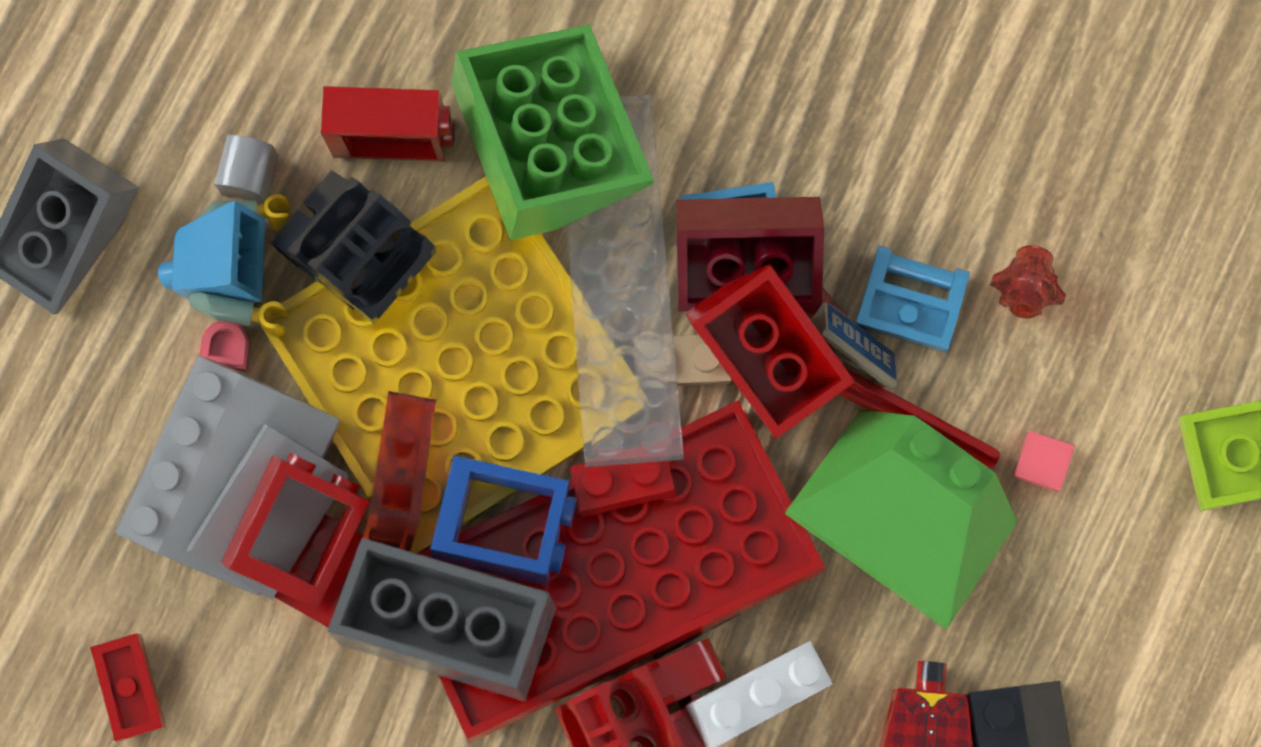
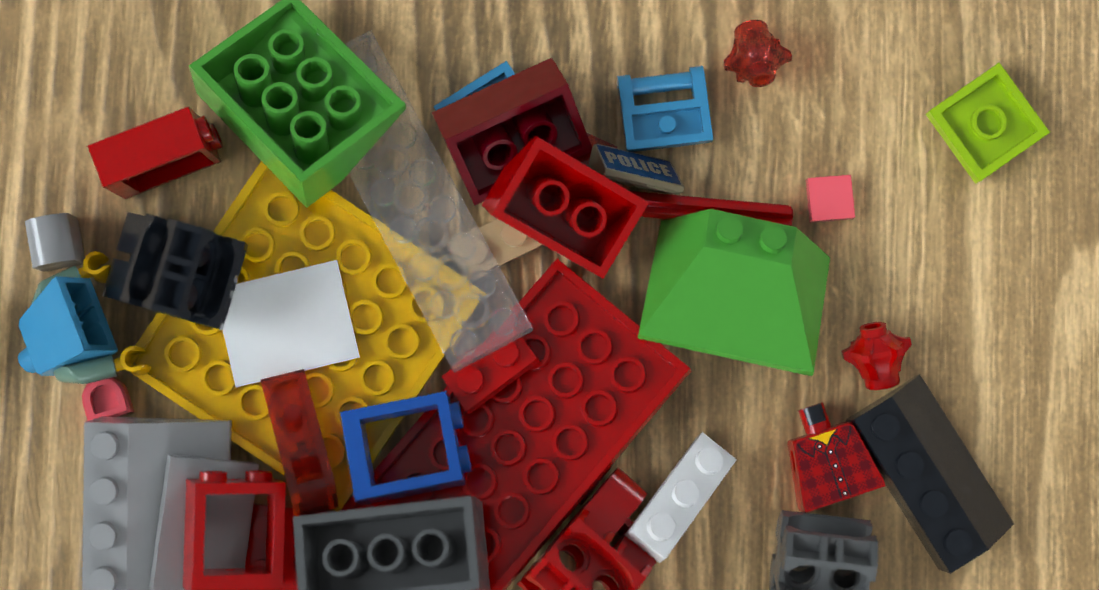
camera: 25 degrees left, 5 degrees up
(441, 349) = (289, 324): none -> white sticker
(1023, 640) = (877, 355): none -> red rock

